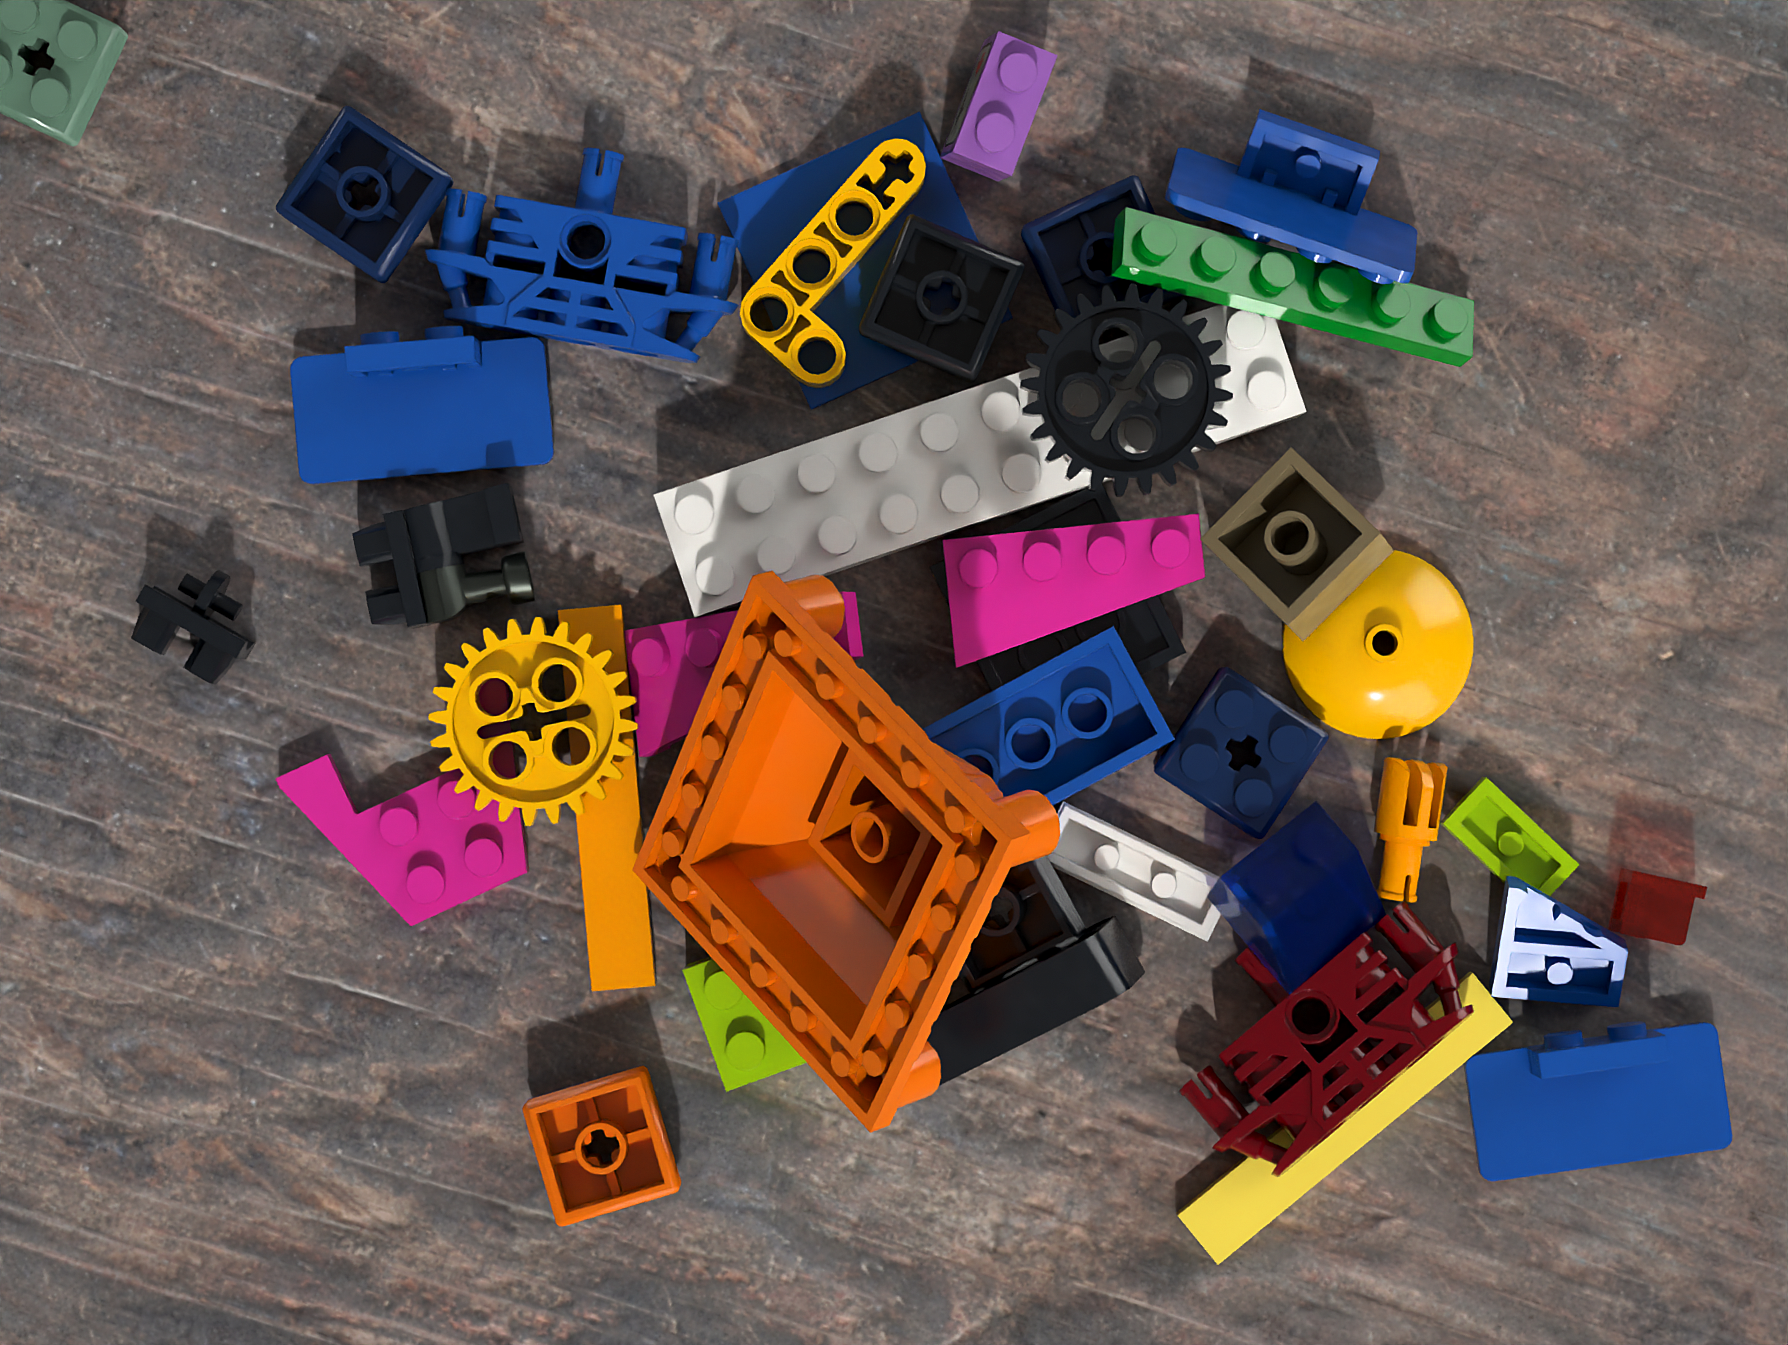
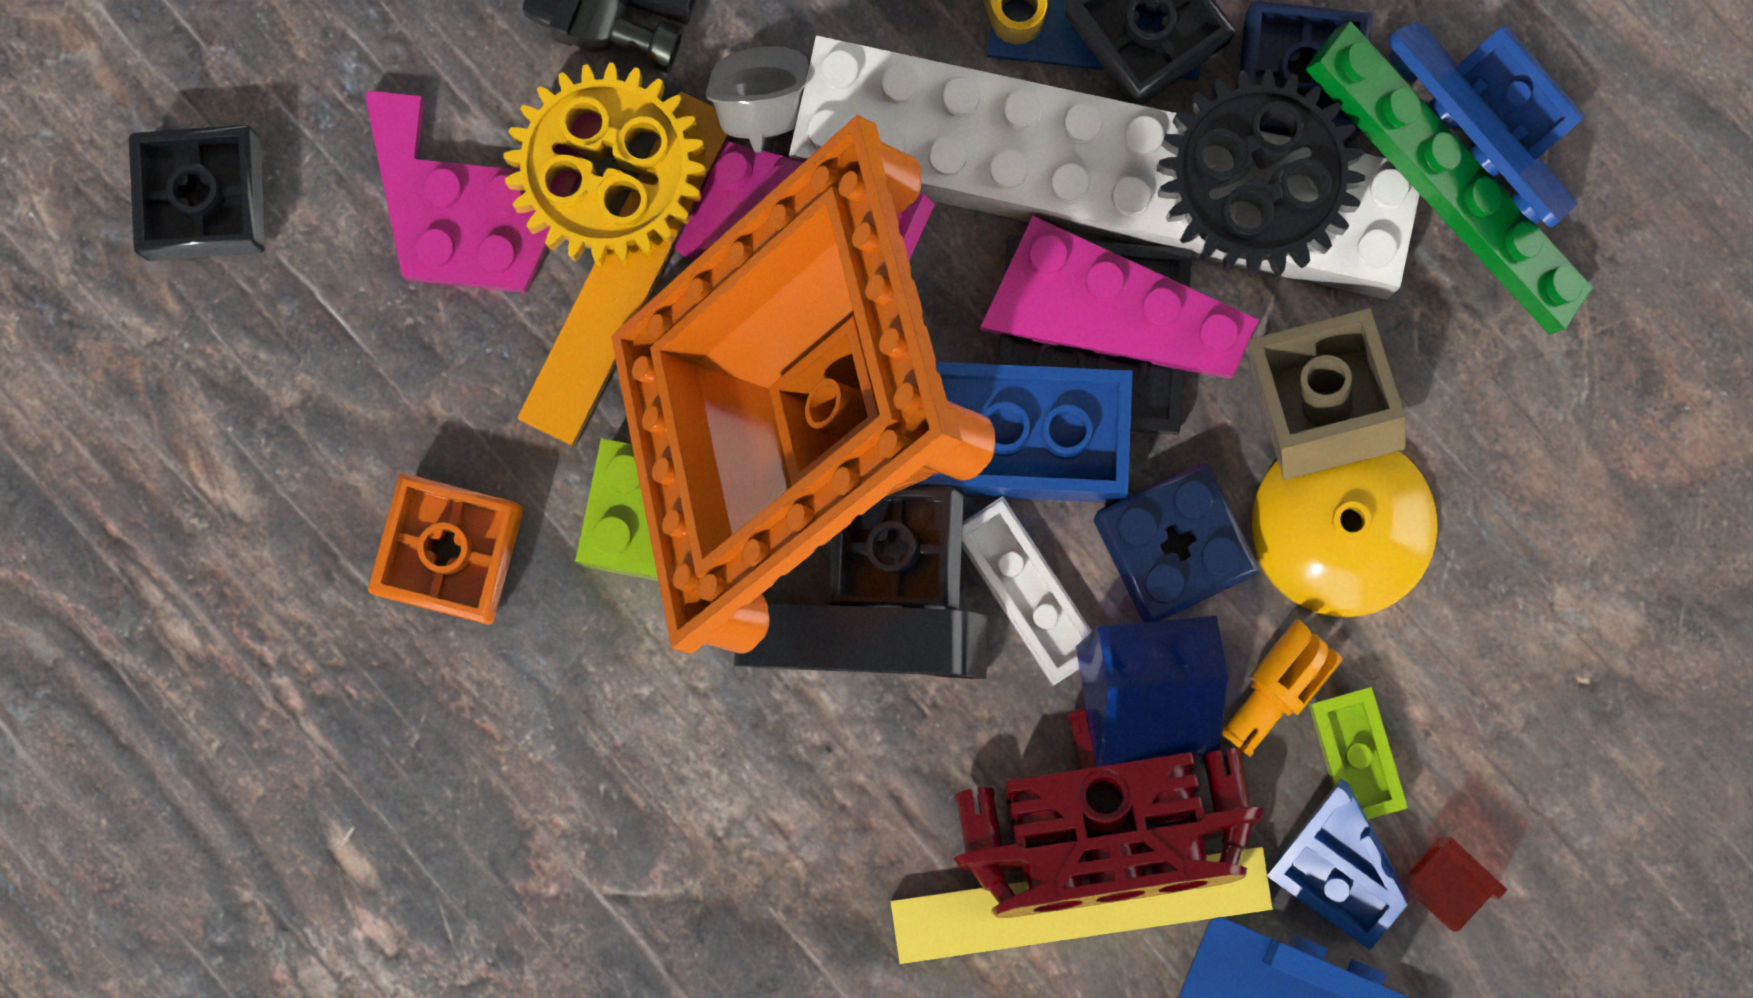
camera: 30 degrees right, 5 degrees down
(140, 959) = (168, 167): none -> black brick
(629, 571) = (758, 92): none -> light grey piece

